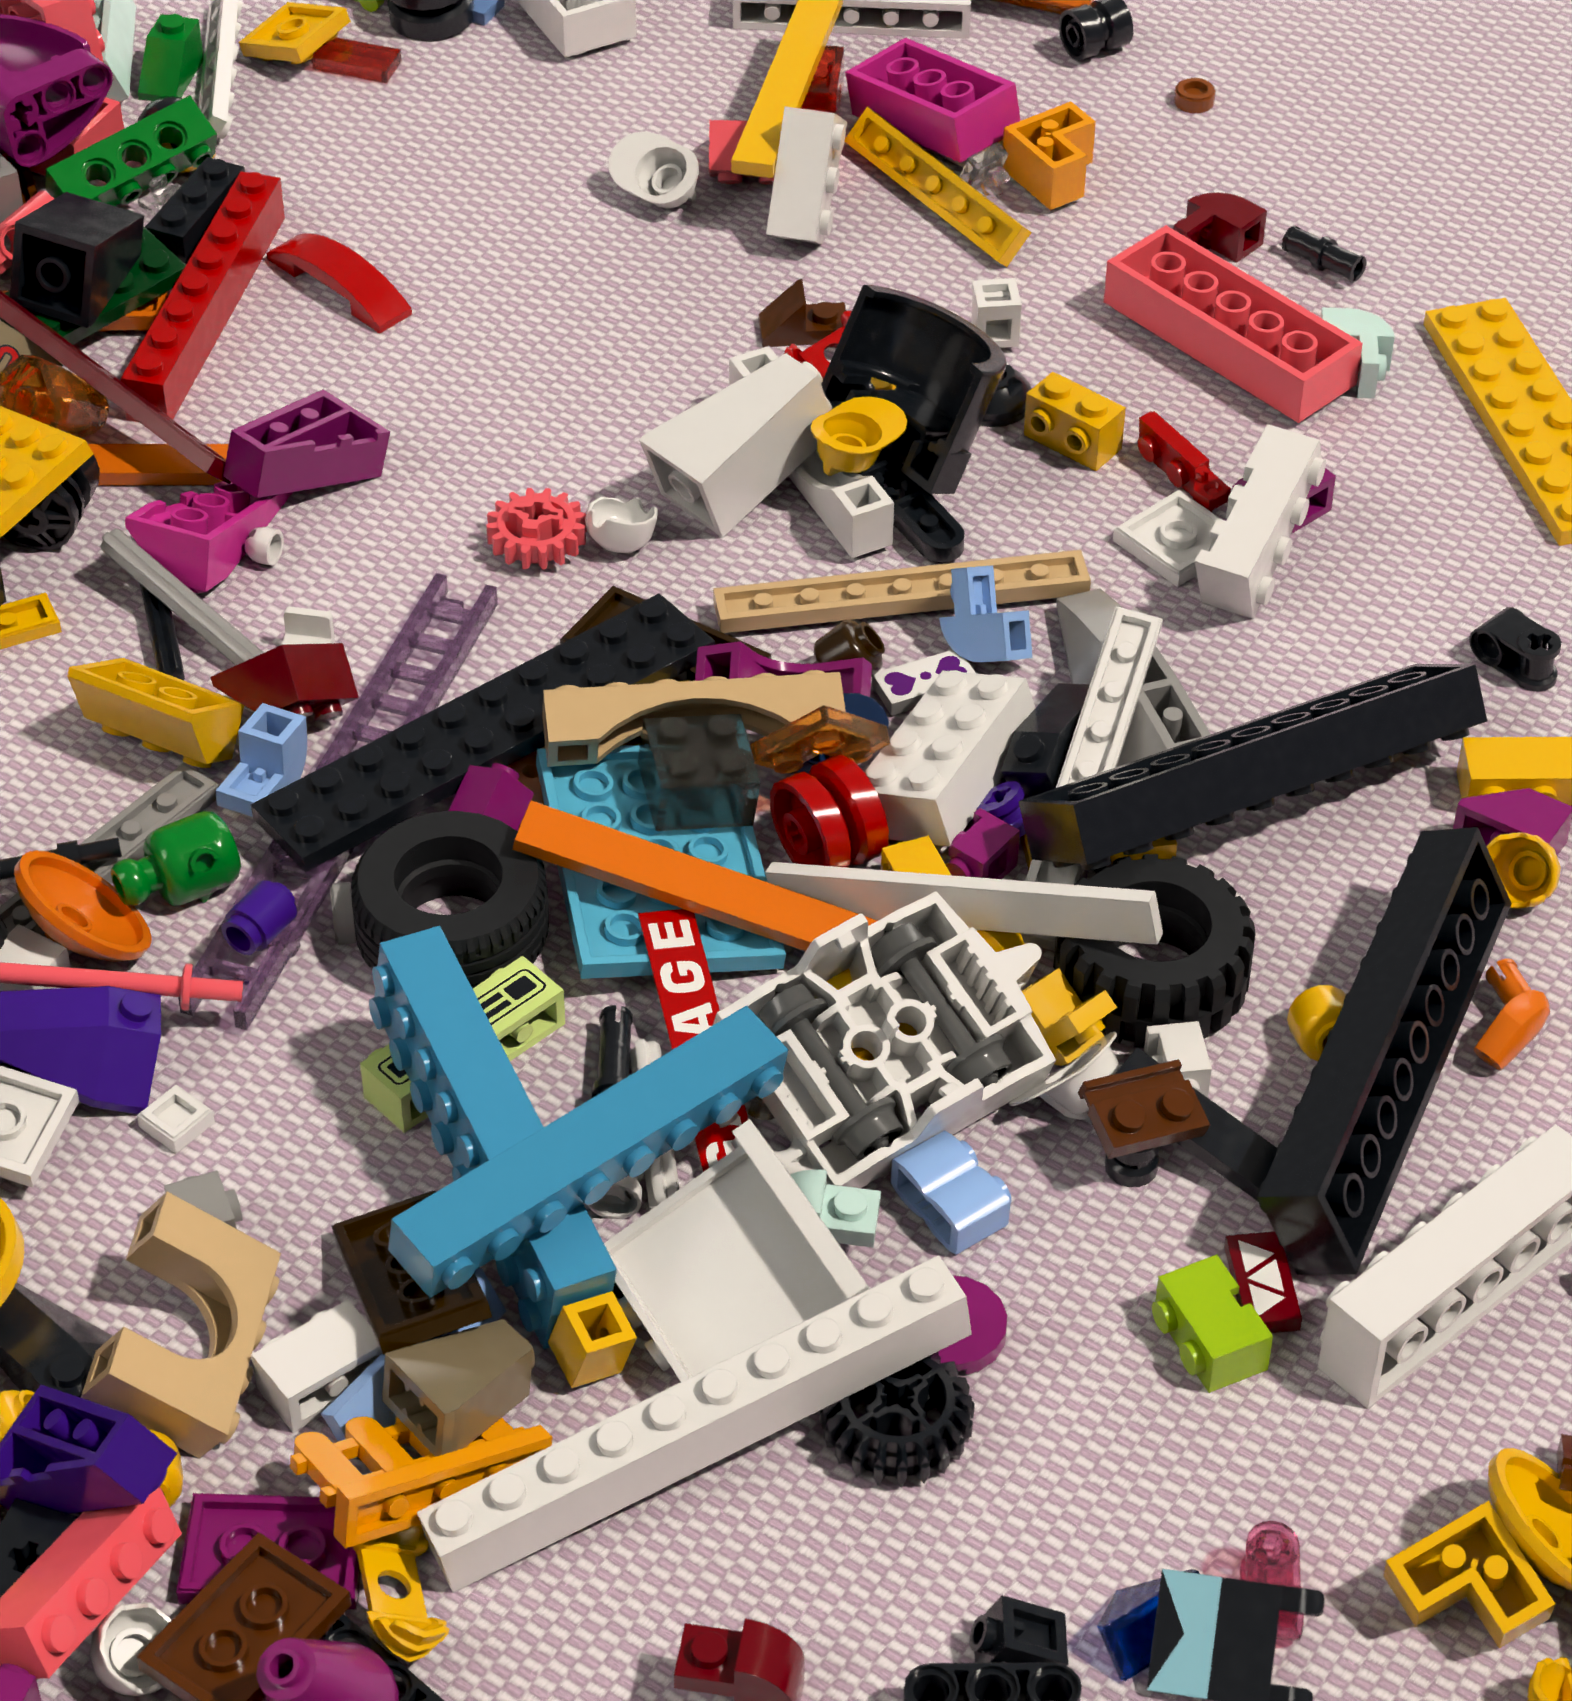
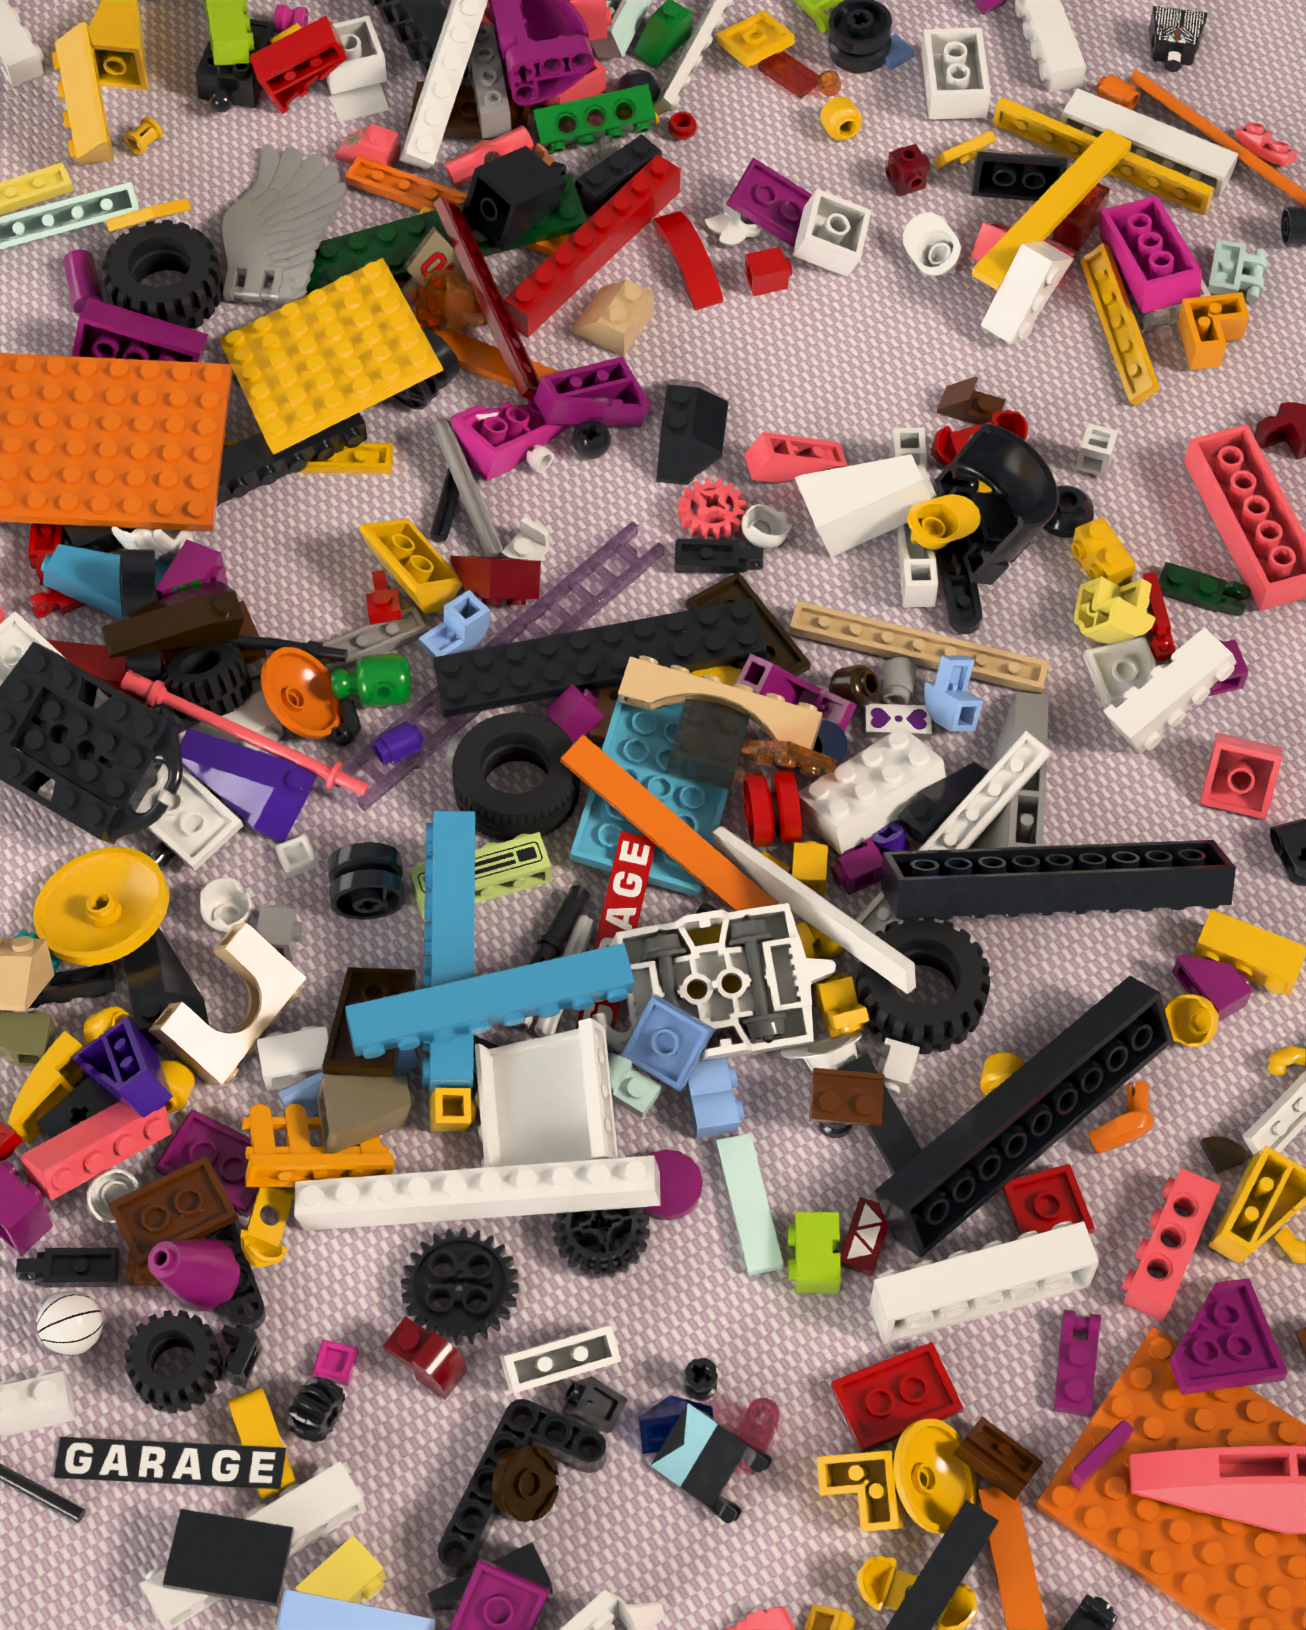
camera: 25 degrees right, 15 degrees up
(103, 1211) = (224, 904): none -> white hair
(136, 773) = (383, 603): none -> red plate
(168, 933) = (349, 727): none -> black arm
(249, 146) = (682, 125): none -> red plate
(279, 361) = (616, 316): none -> tan slope
(306, 1098) = (366, 881): none -> black wheel
(326, 502) = (591, 448): none -> black piece
(380, 224) = (732, 226): none -> white plate
(416, 53) = (829, 83): none -> clear orange hinge
(426, 186) = (770, 201): none -> magenta tile
(454, 81) = (841, 118): none -> yellow head
(454, 259) = (767, 271): none -> red brick
(454, 455) = (690, 431): none -> black wedge
(519, 191) = (832, 233): none -> white brick
(572, 108) = (907, 169): none -> dark red brick
(572, 577) = (716, 556): none -> black hinge
(599, 442) = (784, 457): none -> coral slope
(632, 71) = (965, 151): none -> yellow plate
(712, 71) = (1015, 174): none -> black slope
(734, 1561) = (462, 1255): none -> black gear
(764, 28) = (1131, 168): none -> yellow plate
(863, 1125) = (667, 1042): none -> medium blue tile
(900, 632) = (898, 681): none -> light grey brick
(940, 1594) = (560, 1358): none -> white brick
(1036, 89) = (1227, 268): none -> light aqua plate
(1081, 1305) = (749, 1204): none -> light aqua tile
(1127, 472) = (1113, 612): none -> light yellow brick
(1145, 1543) = (704, 1389): none -> black bush
(1221, 421) = (1202, 590): none -> dark green hinge
(1397, 592) = (1241, 775): none -> coral slope
(1429, 1457) = (894, 1394): none -> red plate
(1466, 1143) = (1046, 1200): none -> red plate

